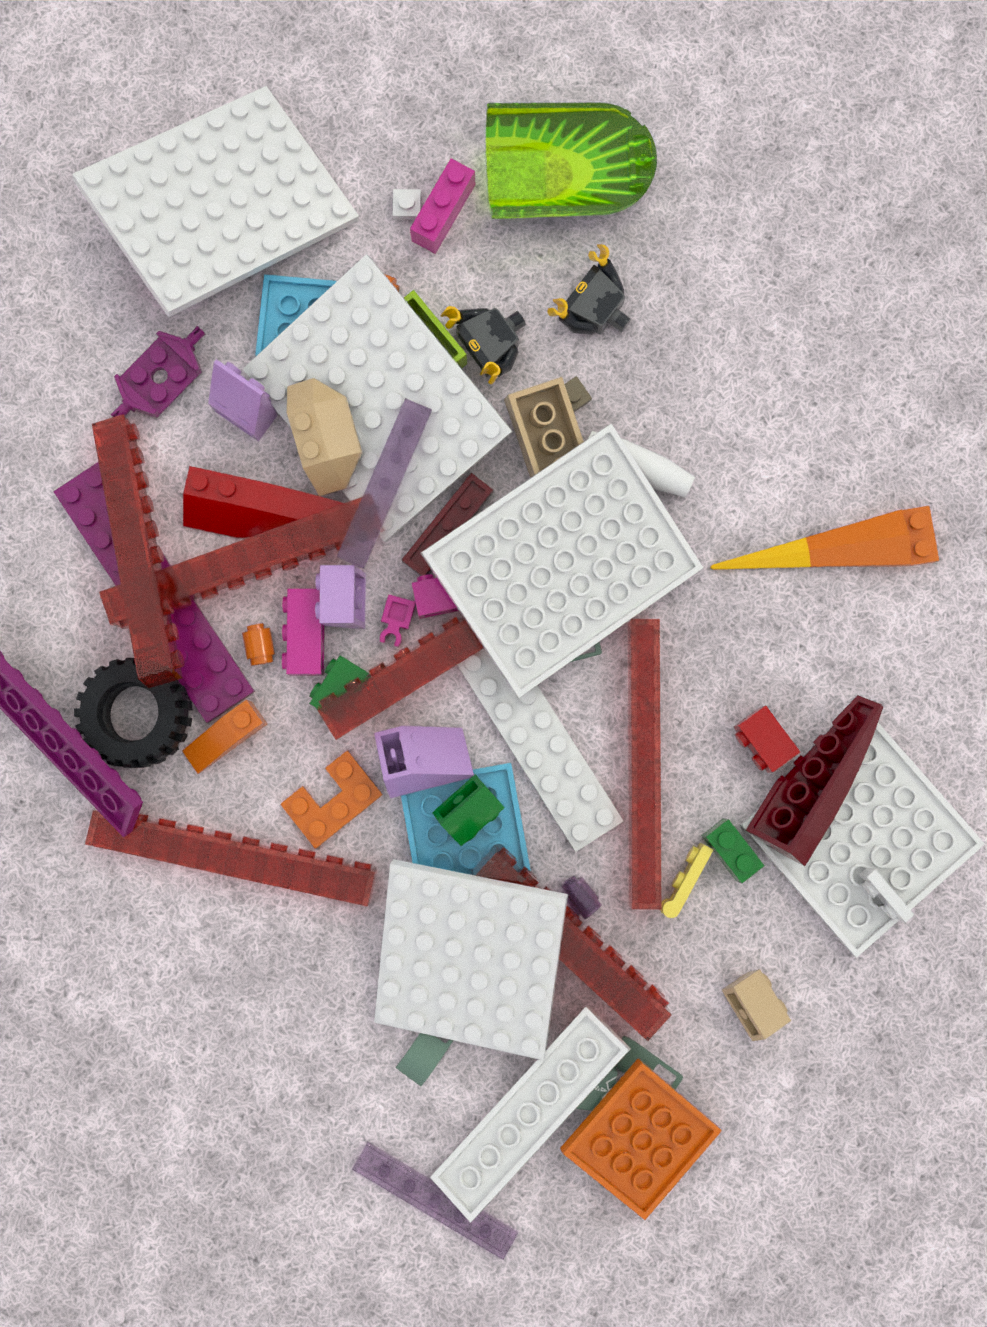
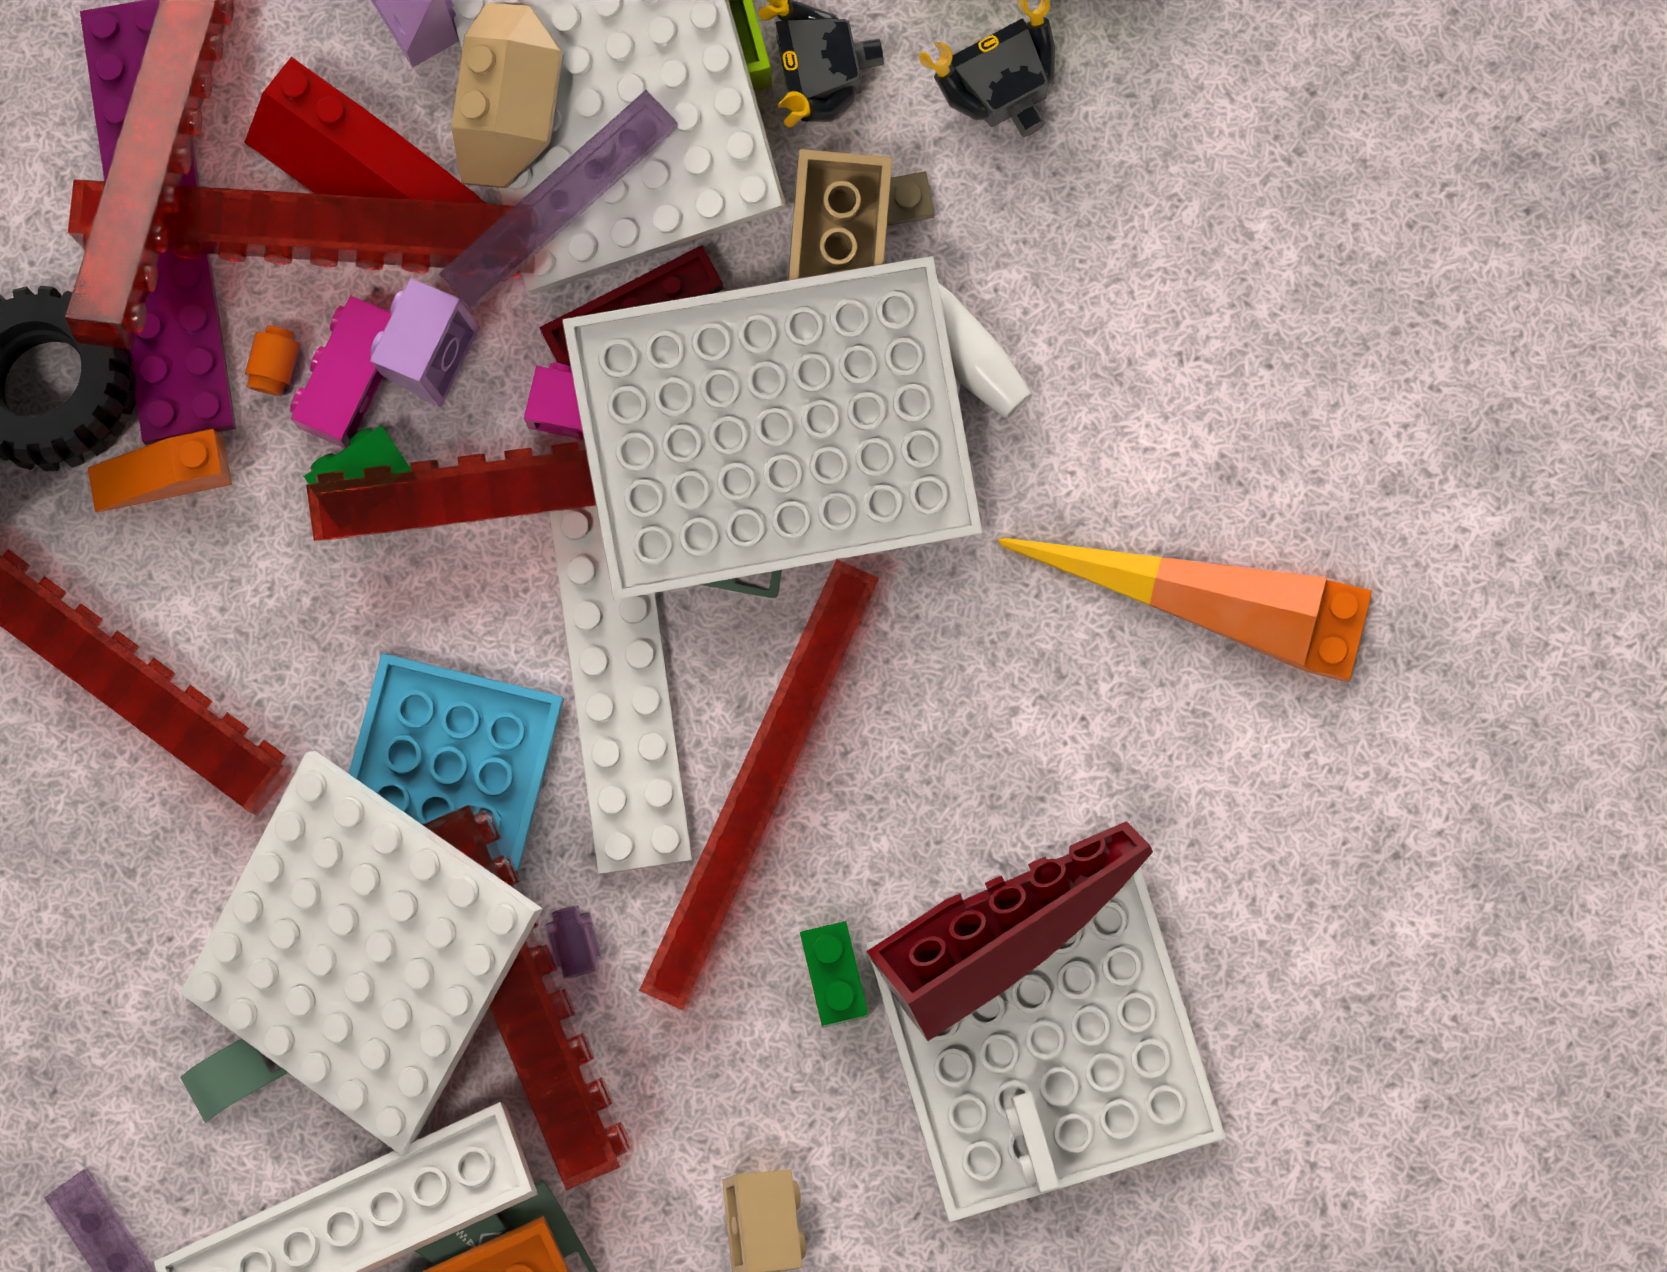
camera: 25 degrees right, 5 degrees down
(323, 822) = (246, 664): orange plate -> none
(398, 615) = (495, 407): dark pink plate -> none
(422, 758) = (430, 628): lavender slope -> none
(468, 810) = (462, 734): green brick -> none
(685, 881) = (741, 990): light yellow plate -> none
(766, 740) = (960, 830): red brick -> none

